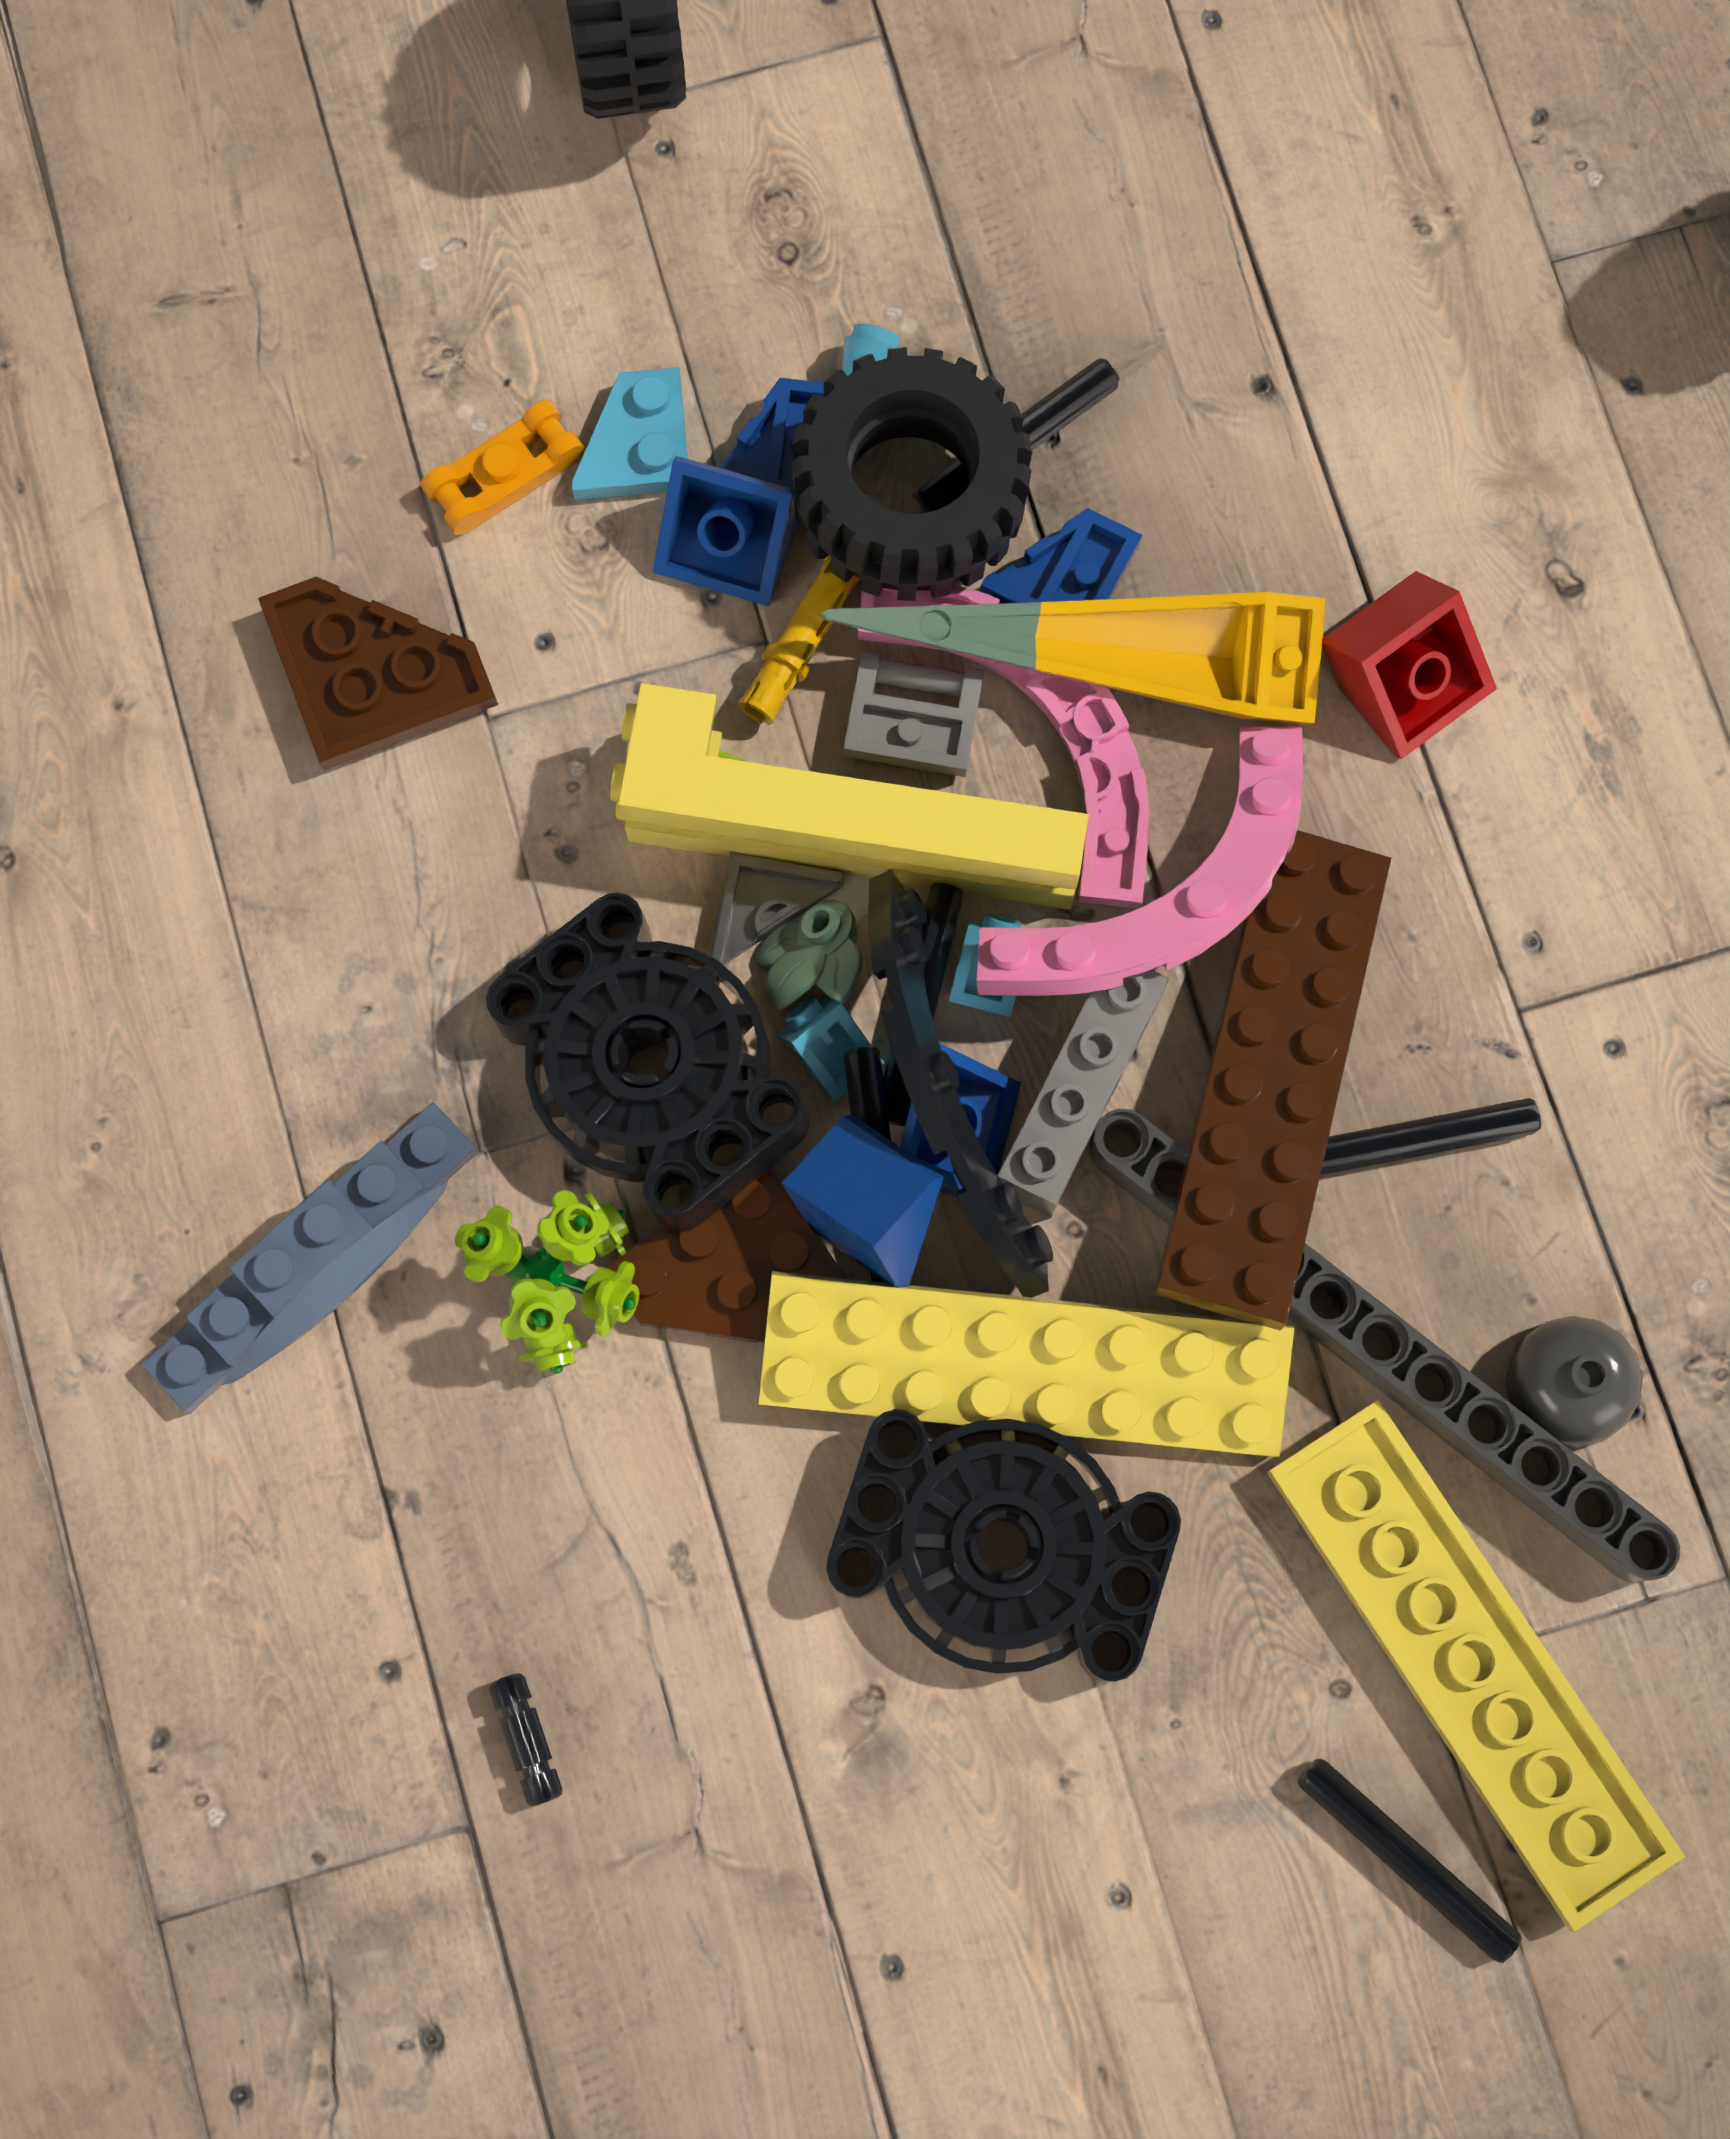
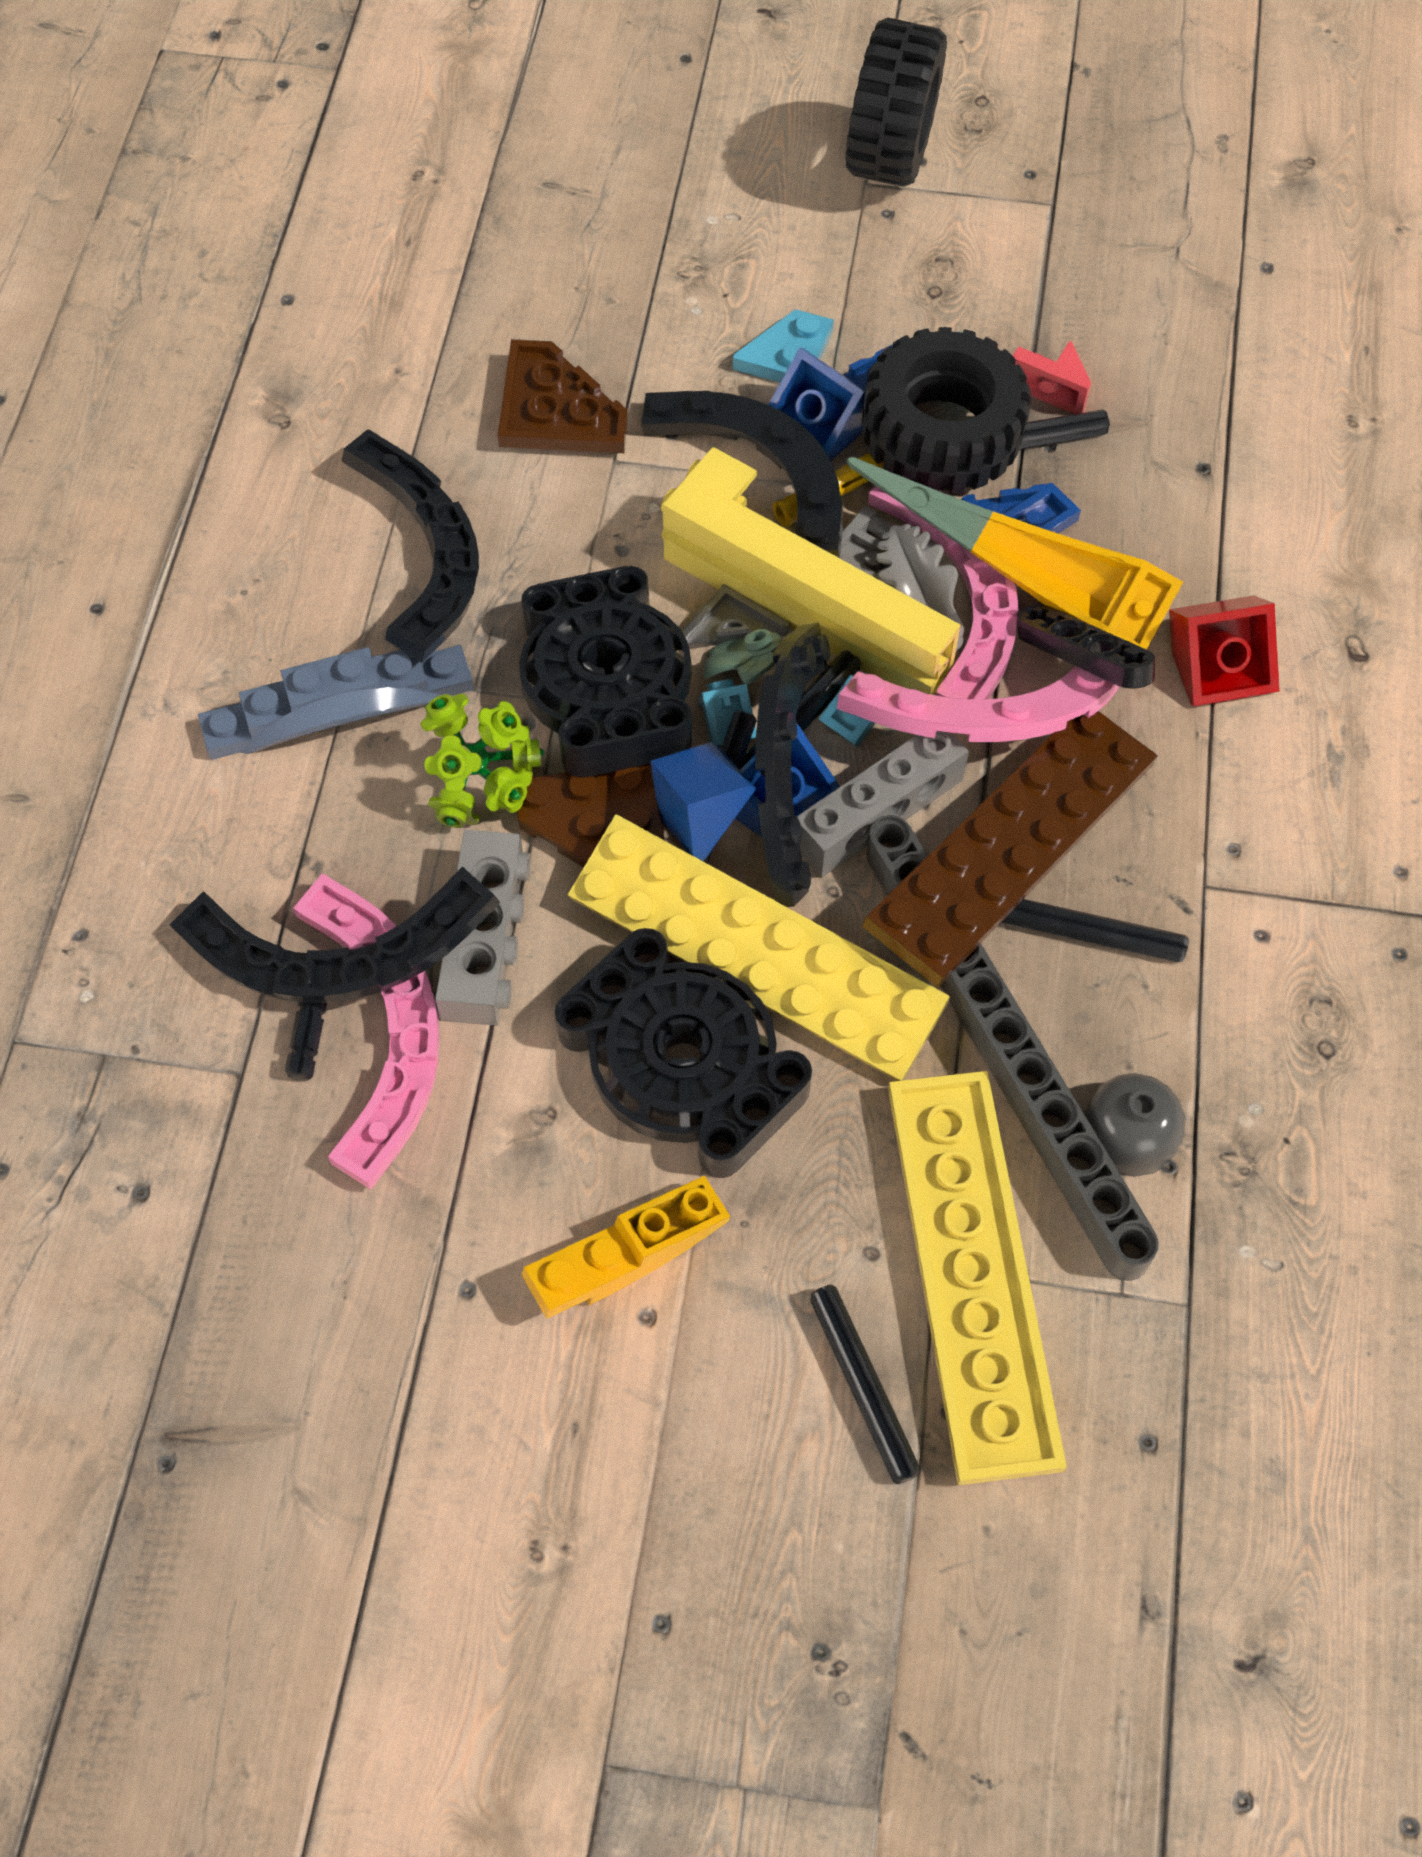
camera: 25 degrees right, 15 degrees down
(334, 948) = (449, 535): none -> black plate
(503, 468) = (697, 334): light orange plate -> none
(521, 1663) = (338, 972): none -> black plate
(622, 1405) = (480, 997): none -> light grey brick
(647, 1660) = (413, 1034): none -> bright pink plate
(703, 603) = (775, 436): none -> black plate
(994, 752) = (917, 570): none -> light grey plant
(1029, 342) = (1059, 382): none -> coral slope
(1061, 1835) = (627, 1250): none -> yellow slope
(1247, 744) = (1086, 646): none -> black beam

